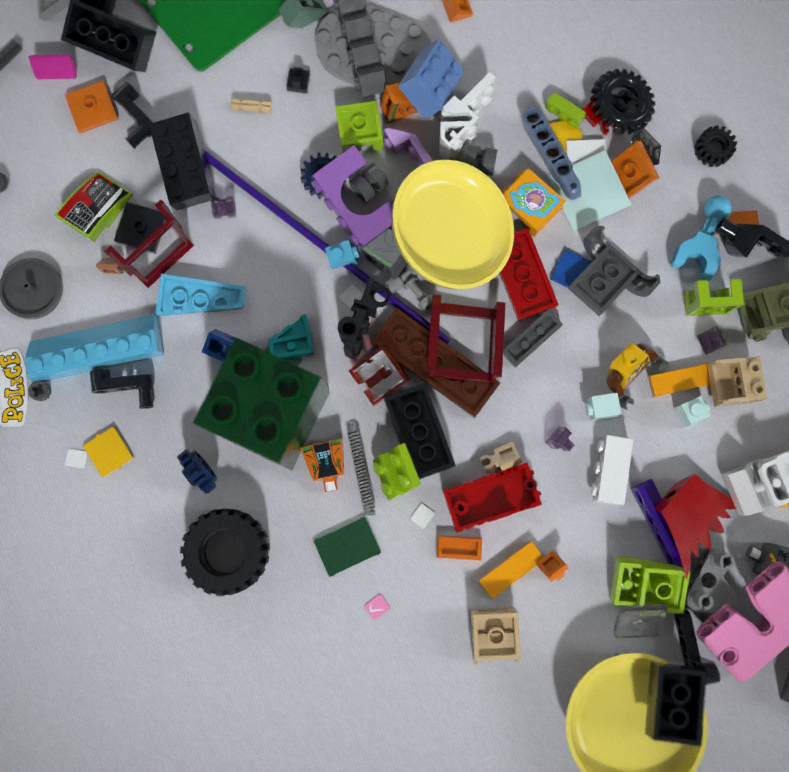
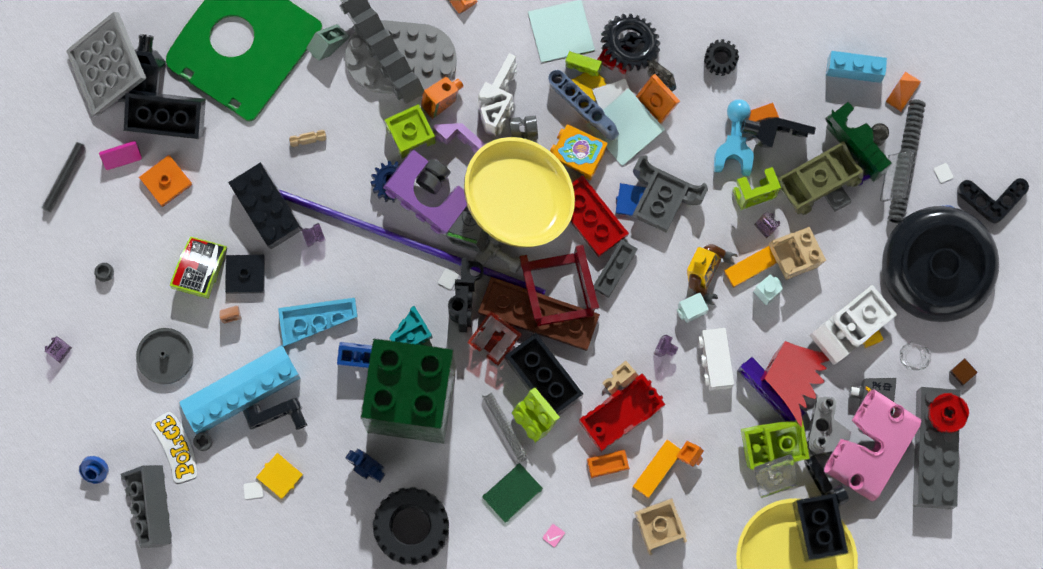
camera: 20 degrees left, 5 degrees down
(125, 98) = (194, 165): black beam -> none
(168, 262) = (253, 309): dark red piece -> none
(298, 80) = (342, 104): black tile -> none
(325, 462) = (471, 426): torso -> none
(342, 254) = (430, 245): medium azure bracket -> none
(422, 516) = (568, 447): white sticker -> none
(431, 78) = (460, 72): medium blue piece -> none
(551, 69) = (561, 30): none -> light aqua piece

